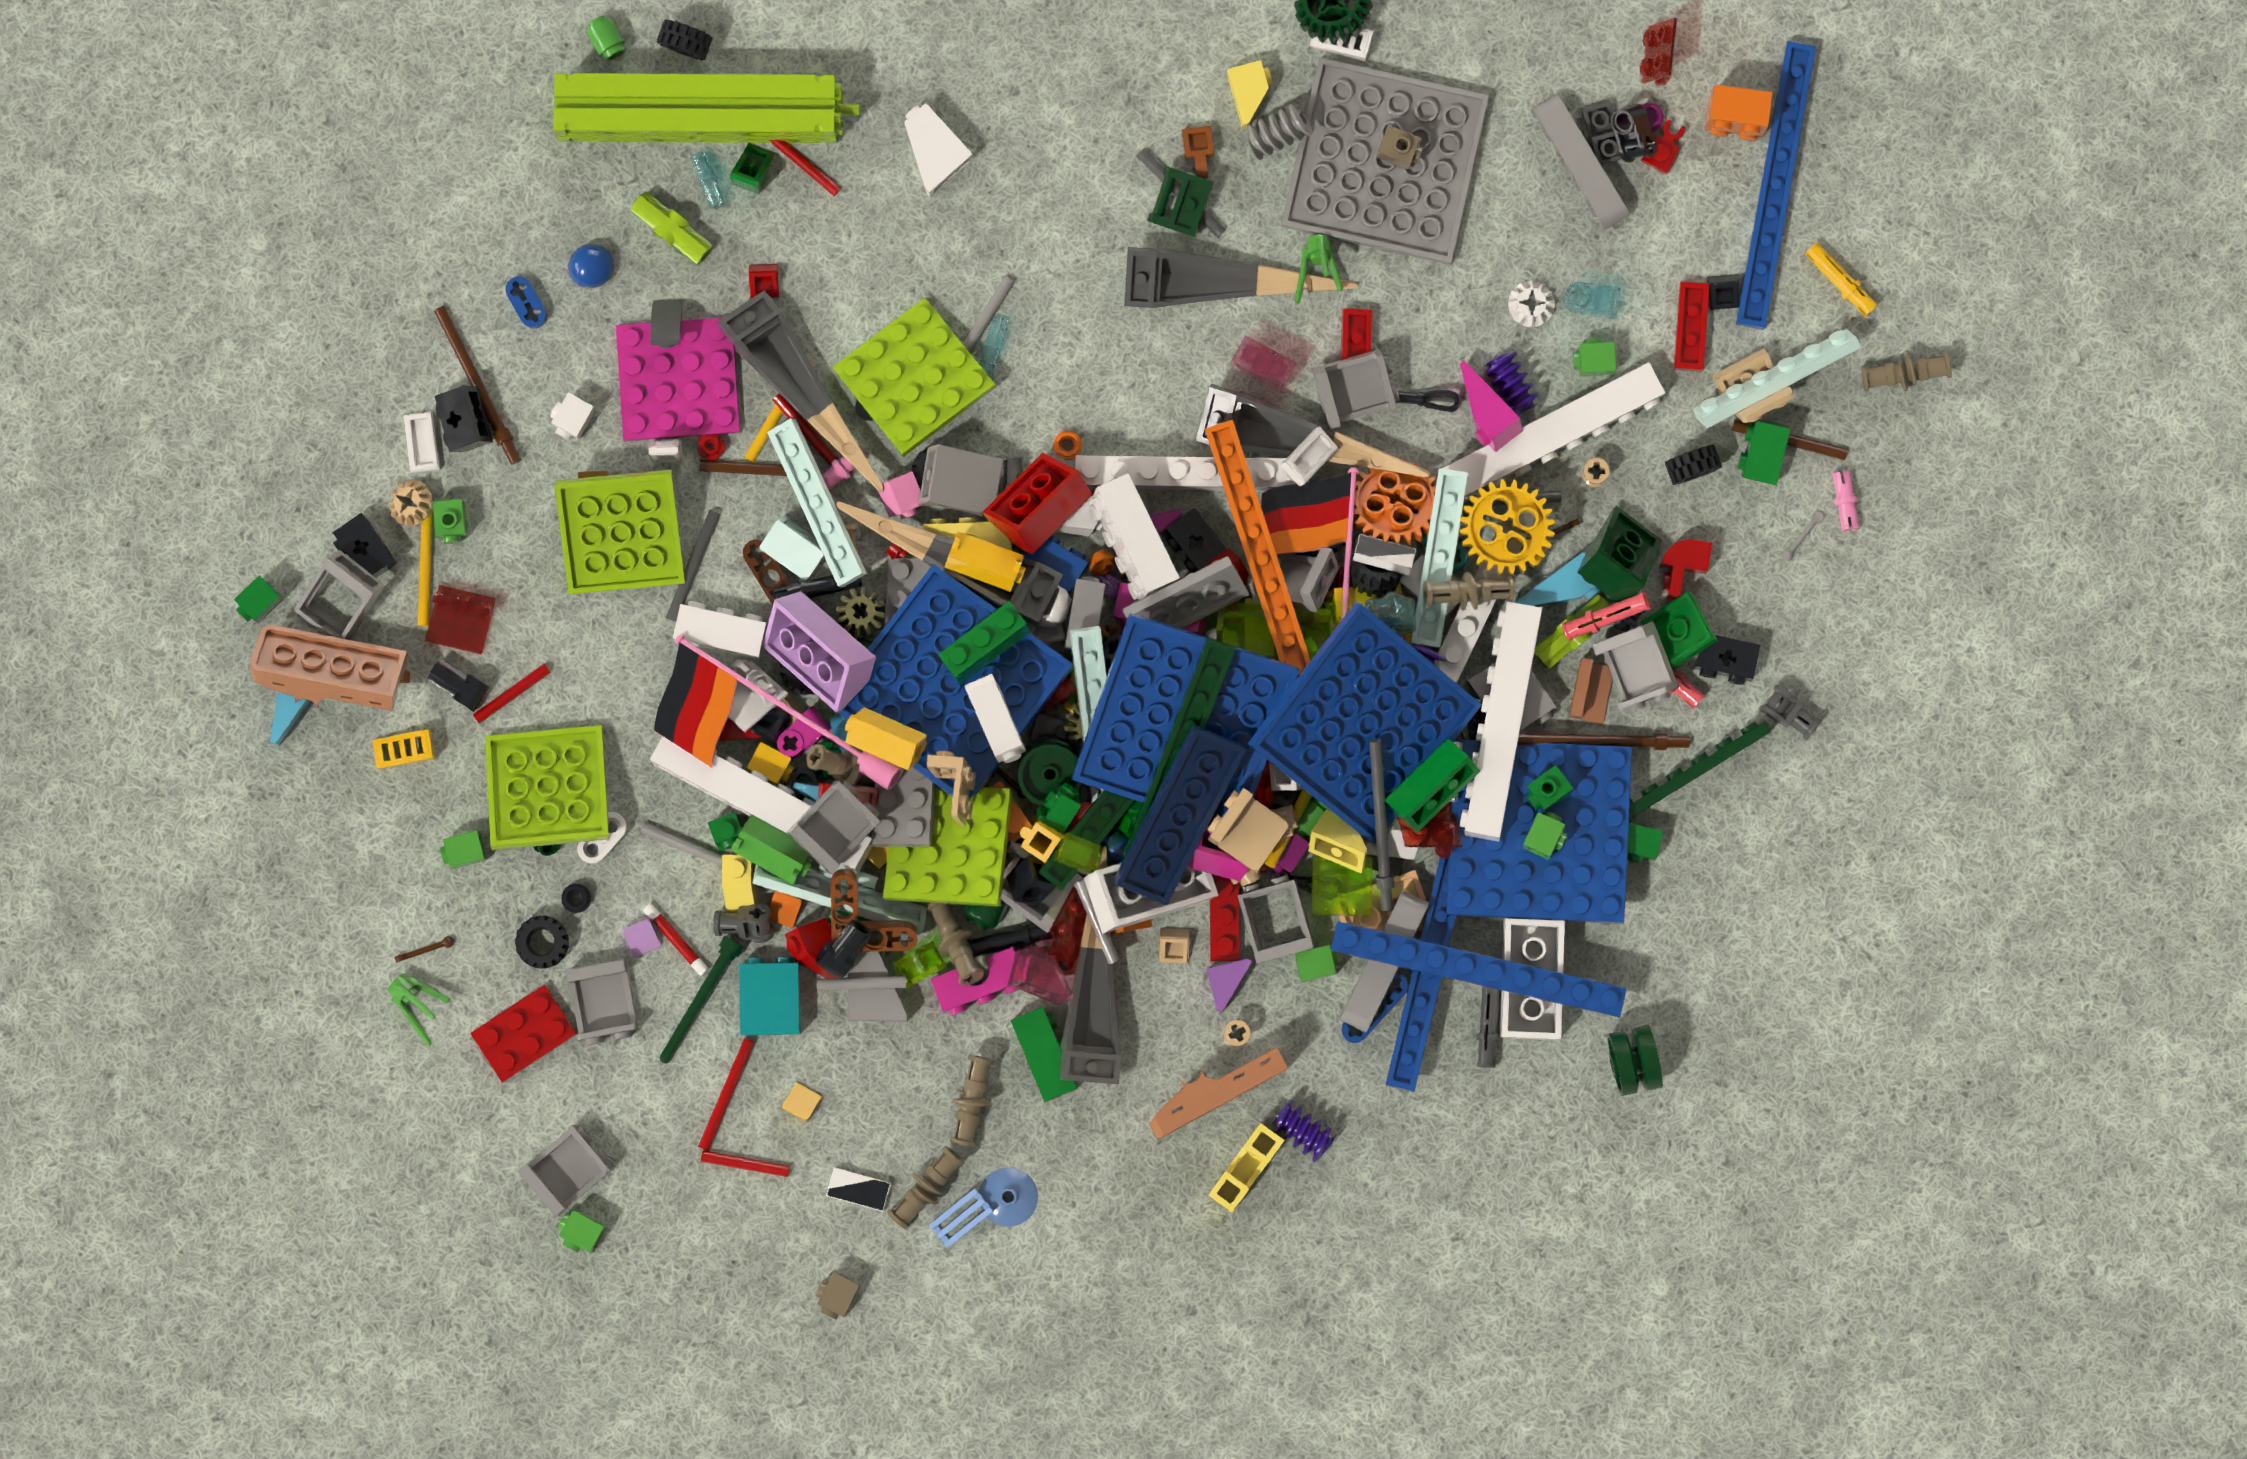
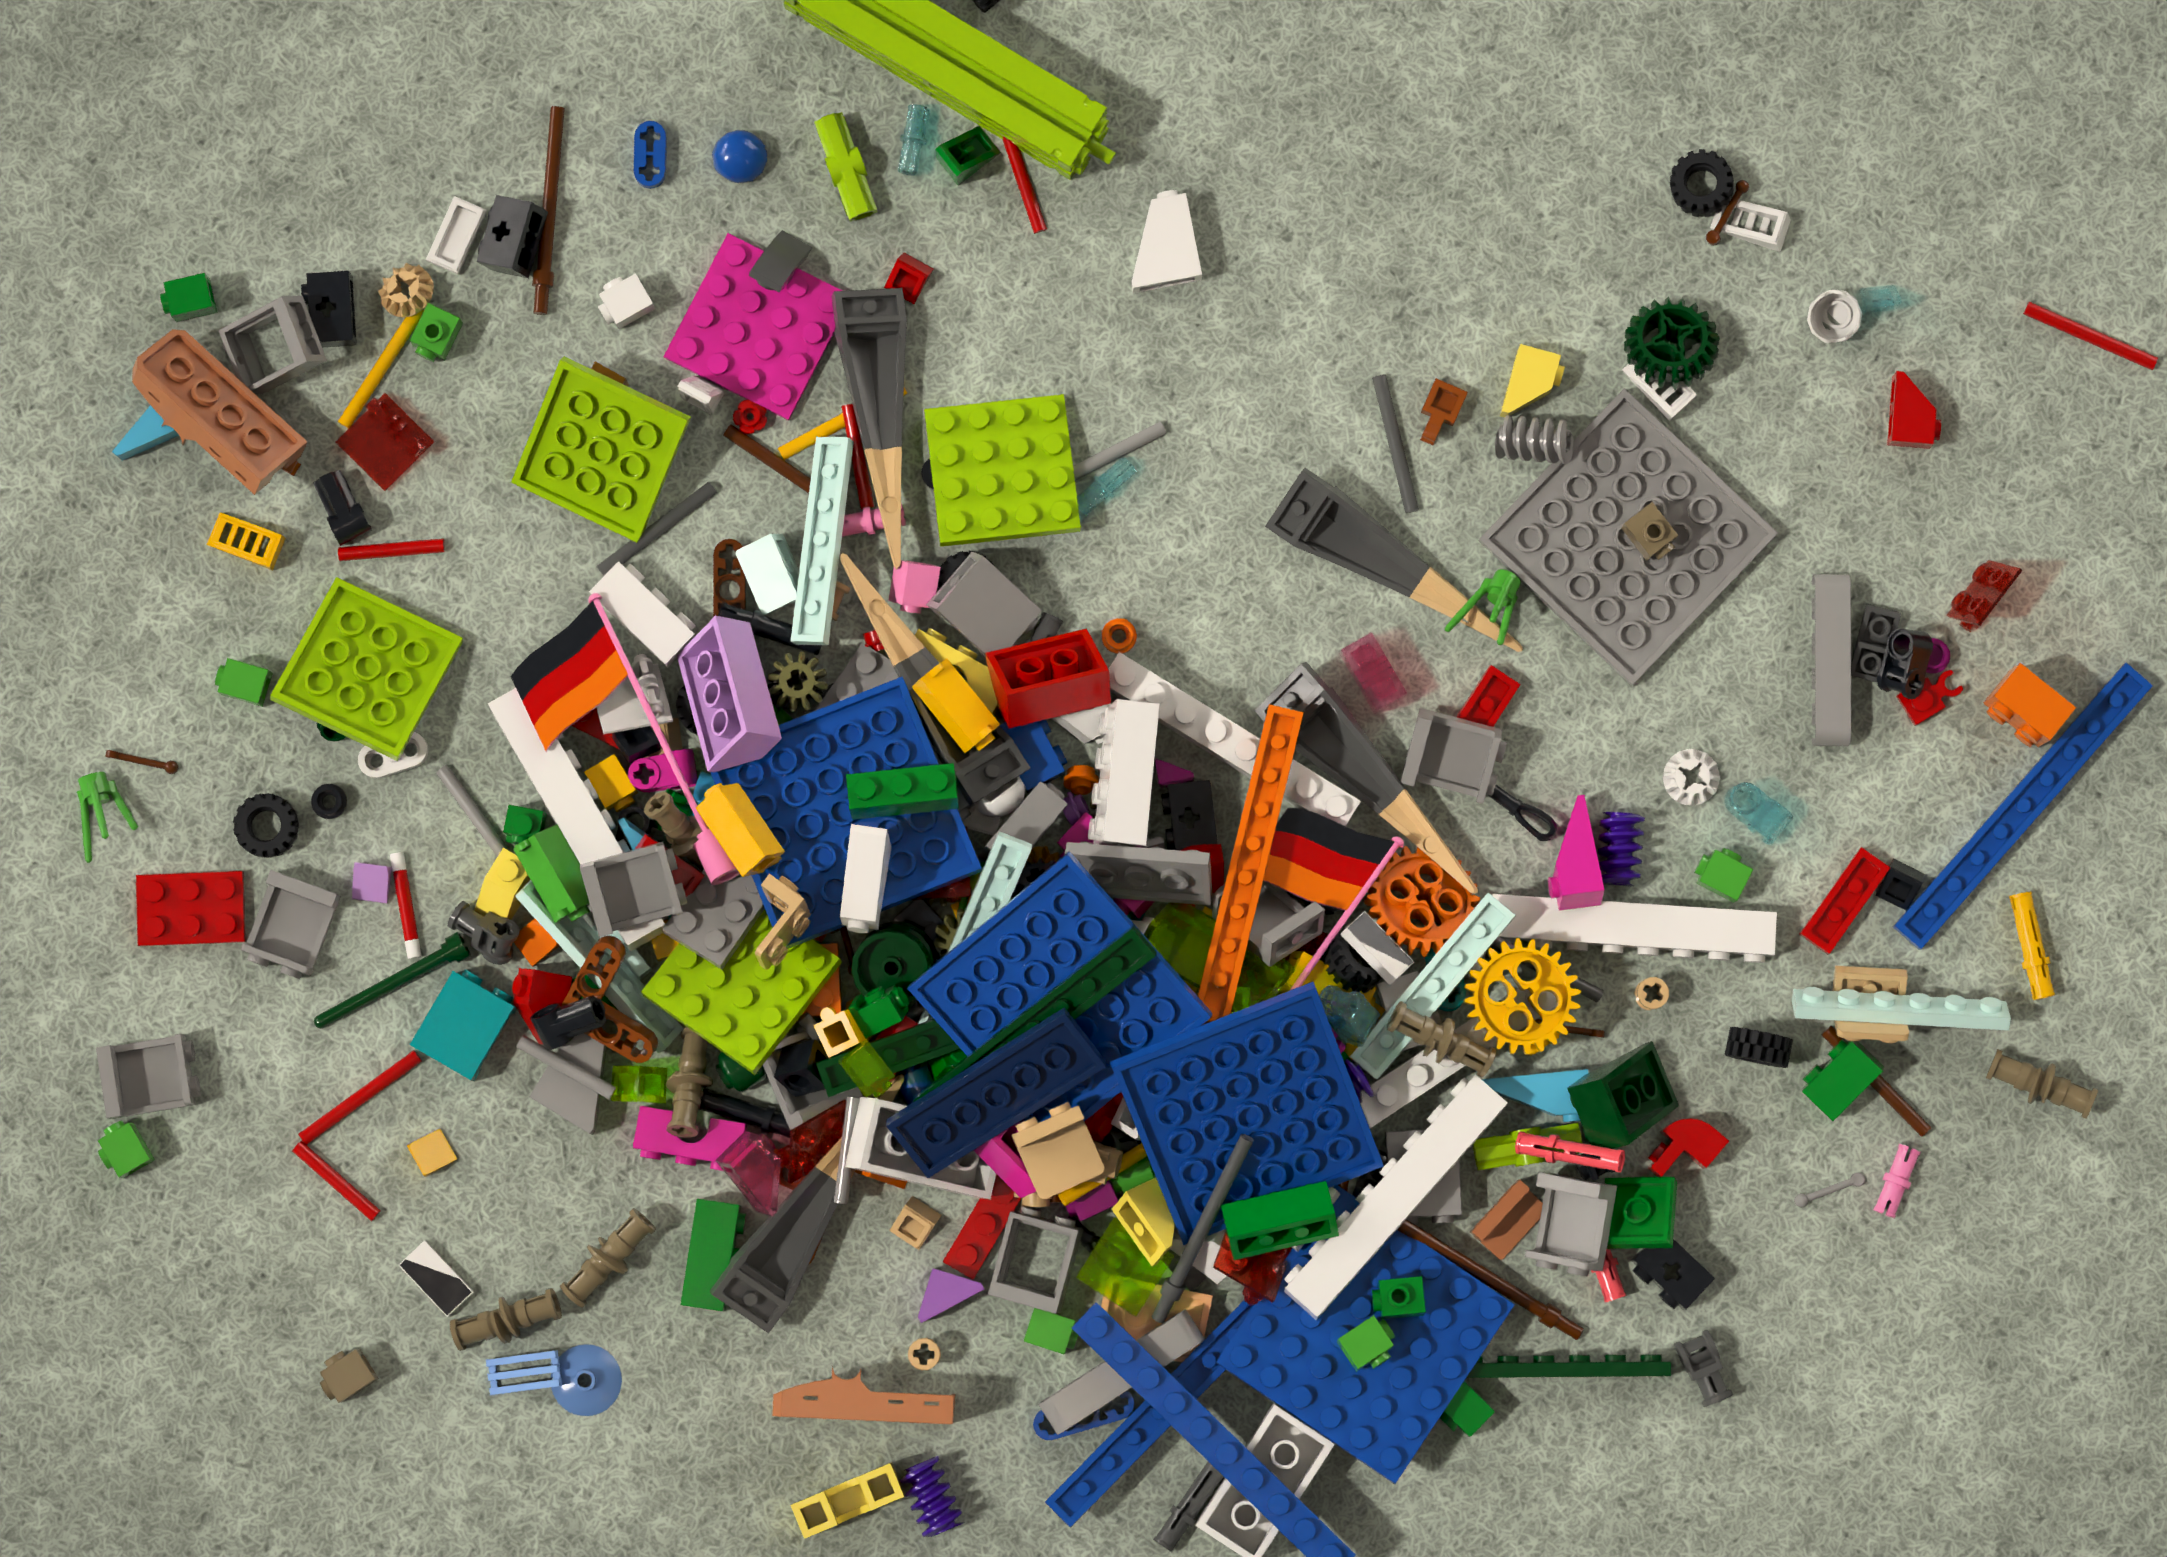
camera: 30 degrees right, 0 degrees up
(1189, 203) = (1395, 461): dark green plate -> none
(1309, 456) = (1361, 798): white tile -> none

